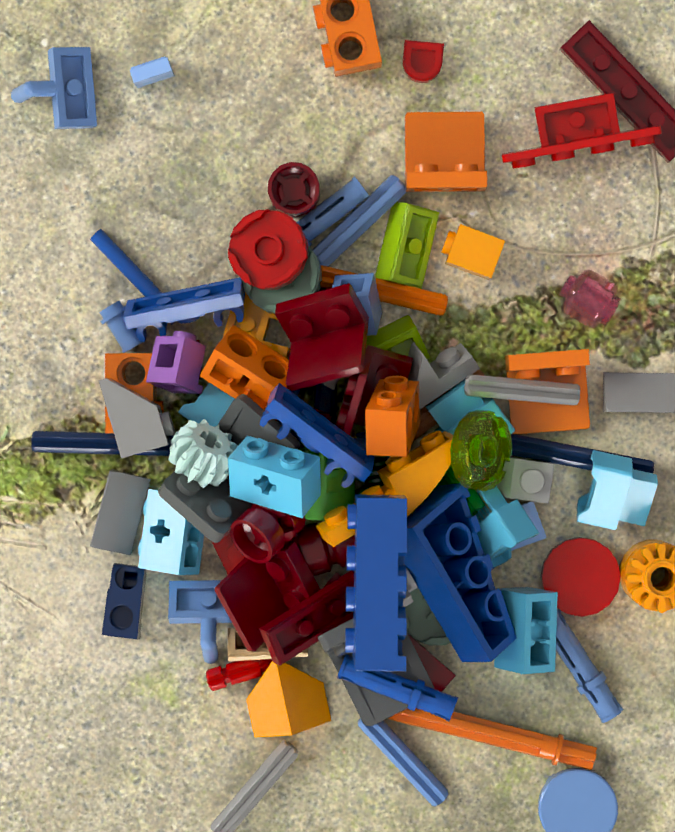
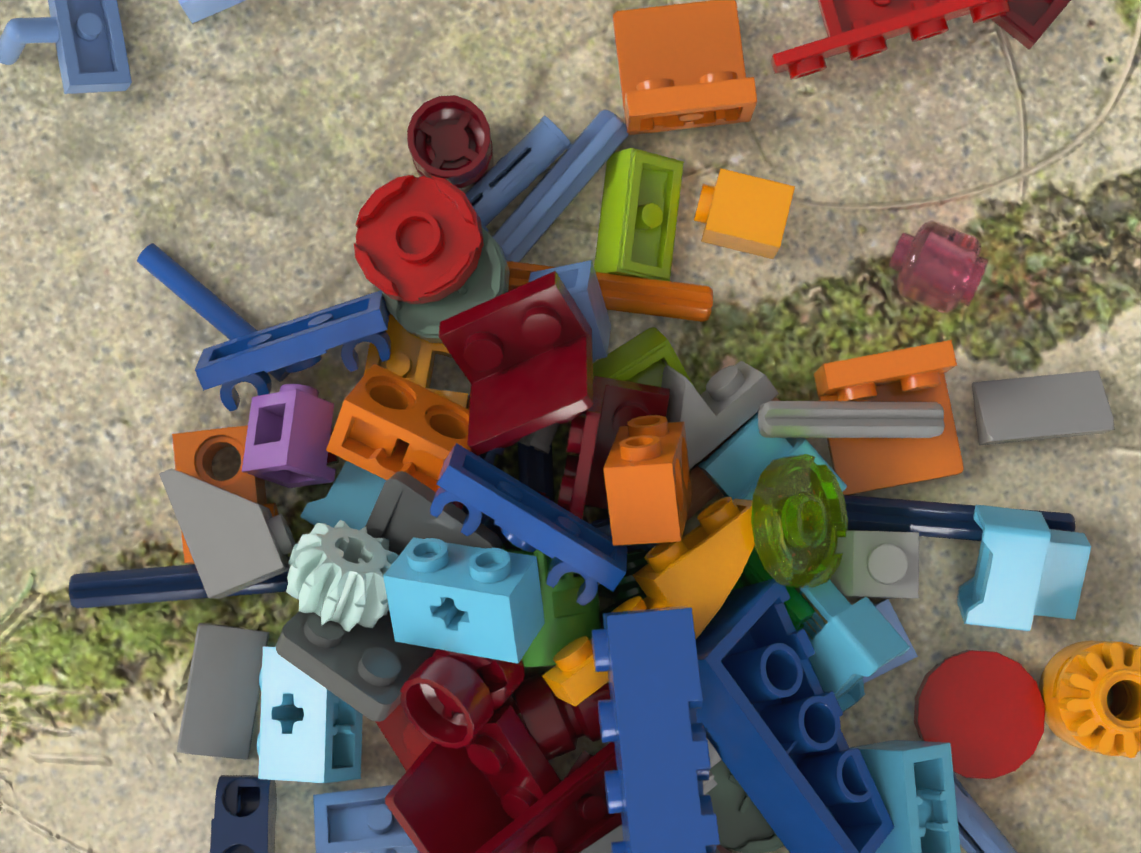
camera: 10 degrees left, 5 degrees down
(114, 319) = (205, 404): medium blue pin -> none

